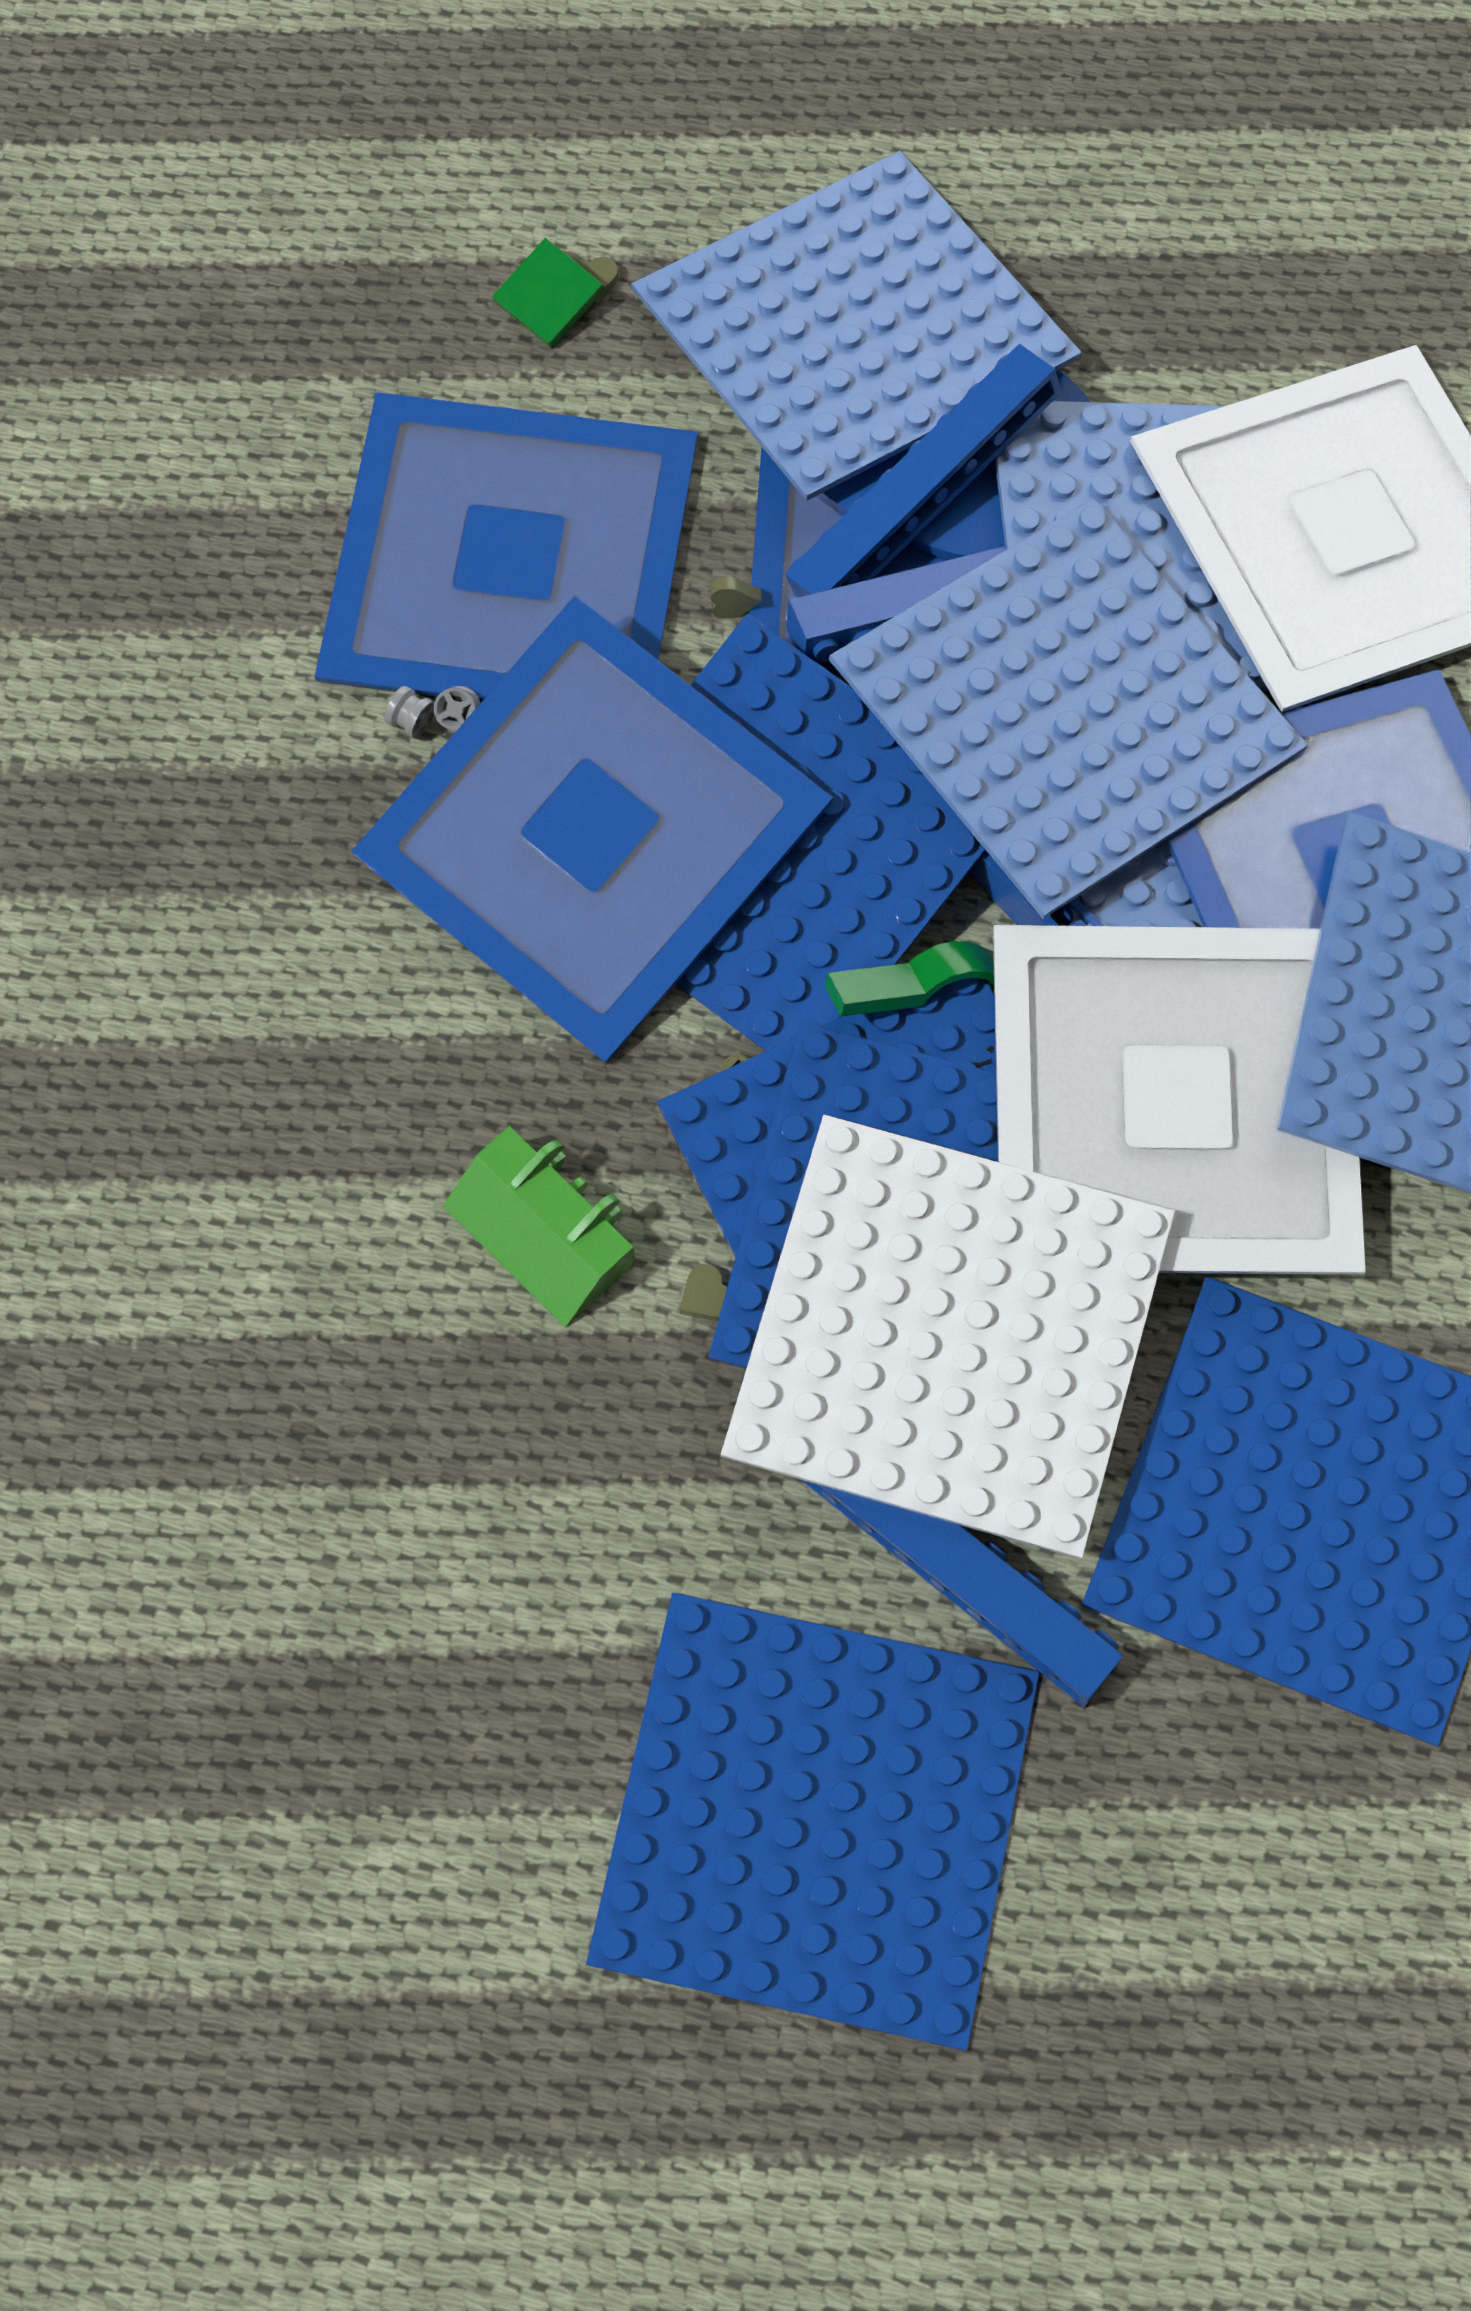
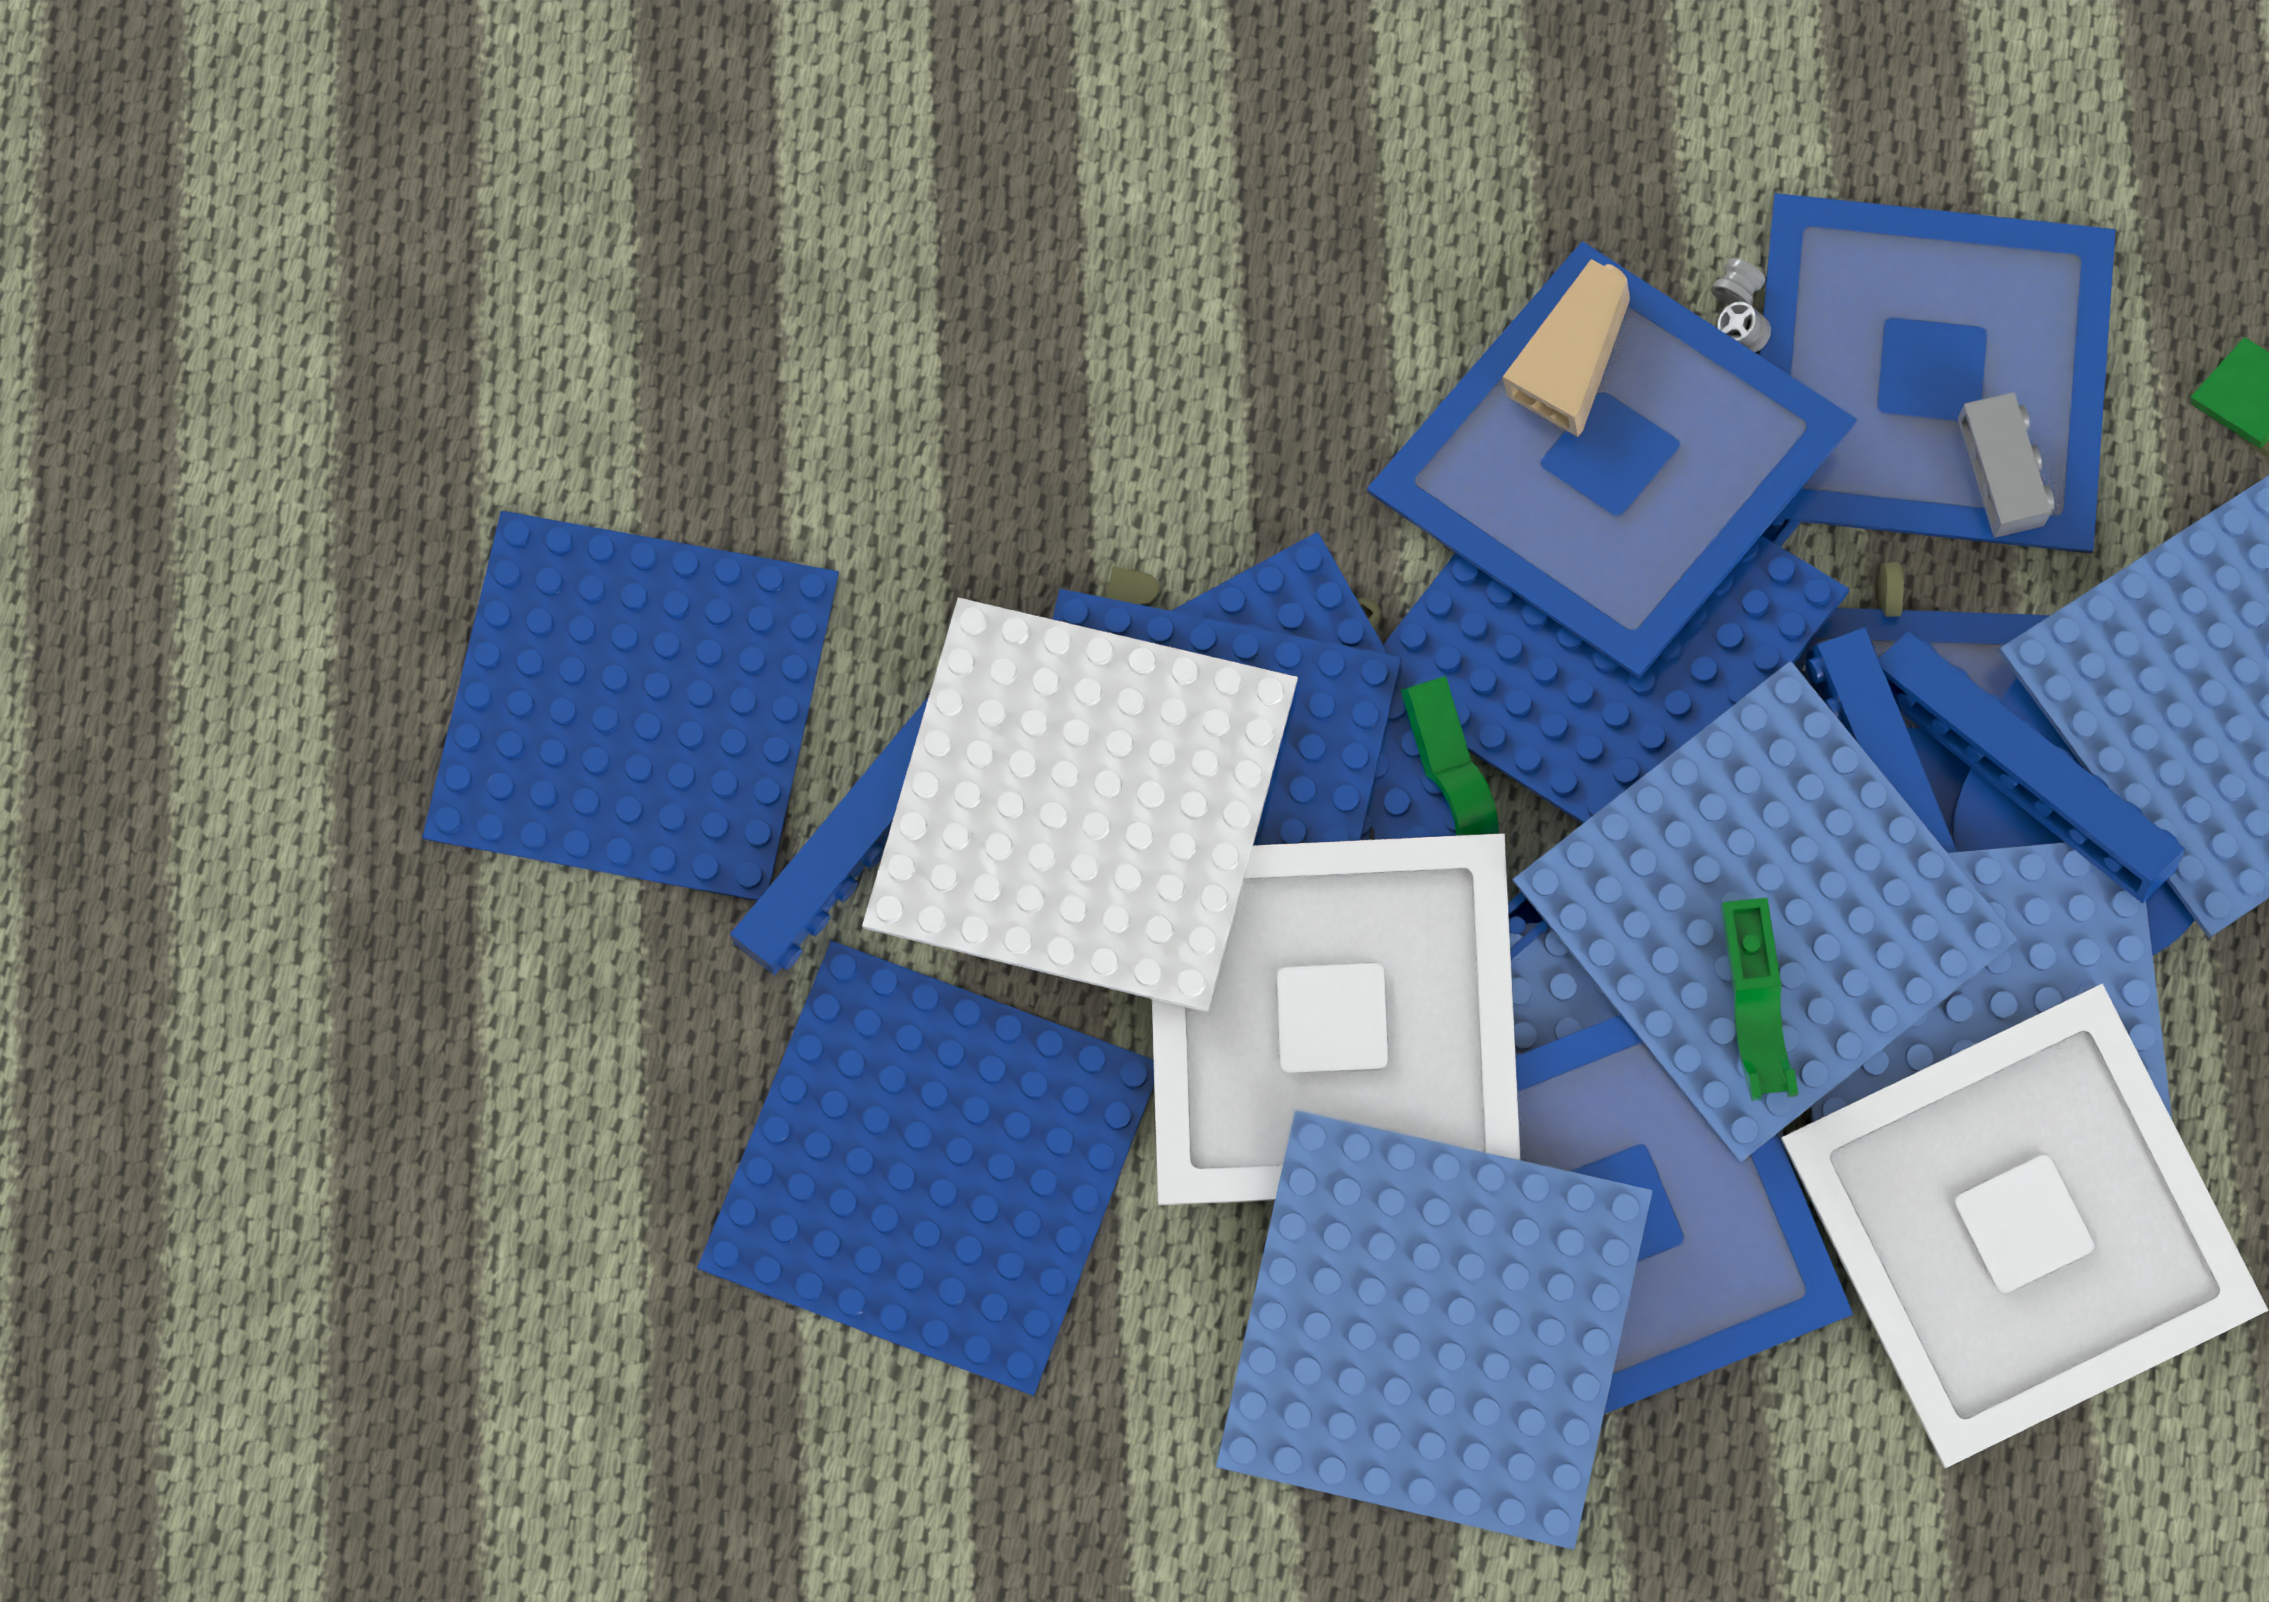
camera: 90 degrees right, 5 degrees up
(484, 855) = (1570, 350): none -> tan slope
(541, 1224) = (1194, 437): bright green piece -> none
(615, 490) = (2006, 464): none -> light grey brick
(1152, 705) = (1757, 997): none -> green piece

